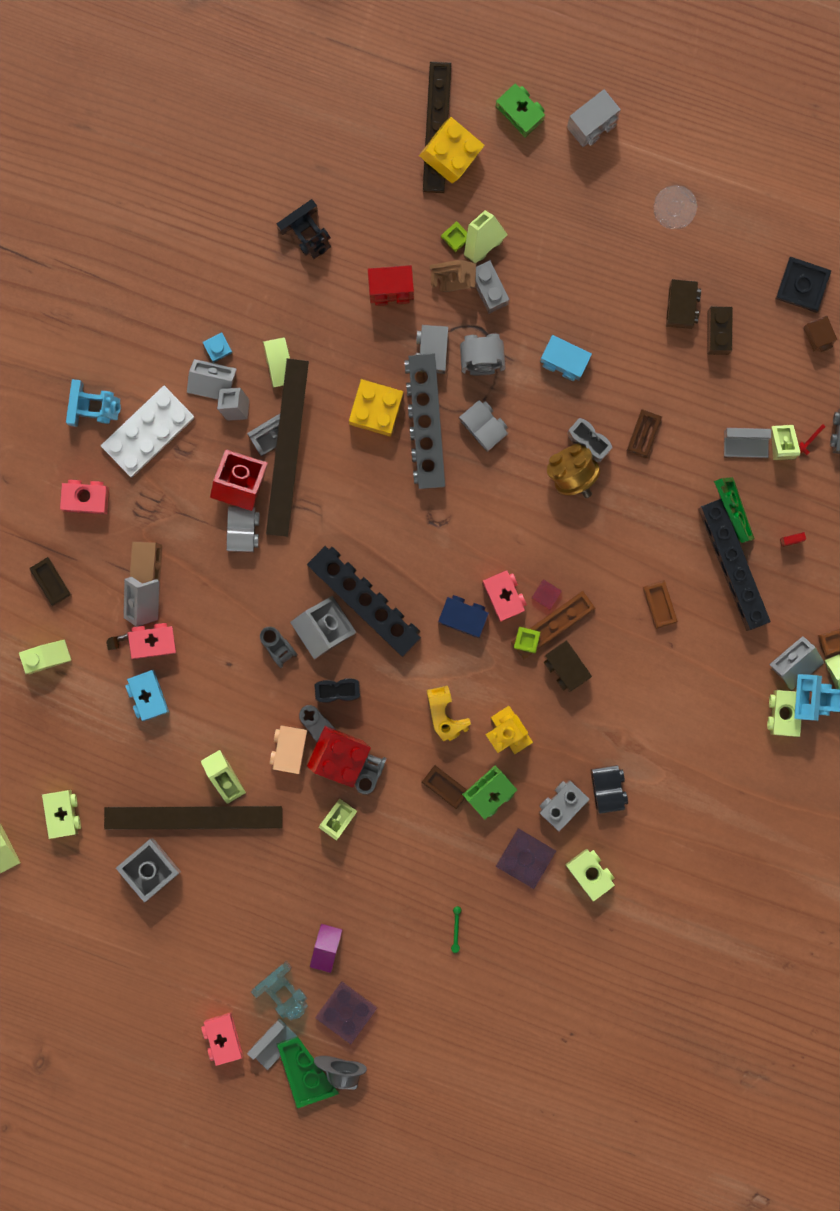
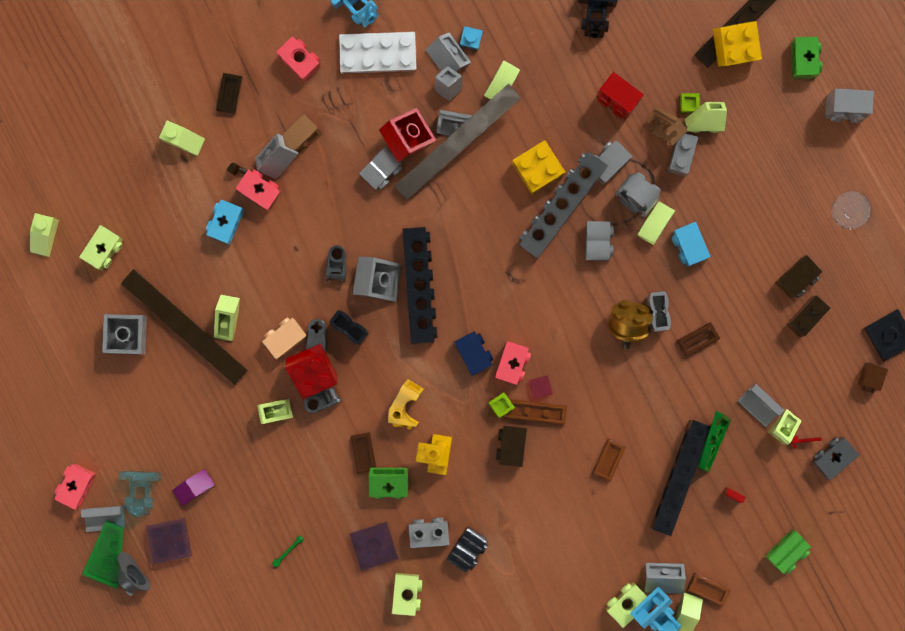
camera: 45 degrees right, 0 degrees up
(519, 366) = (656, 223): none -> yellowish green slope

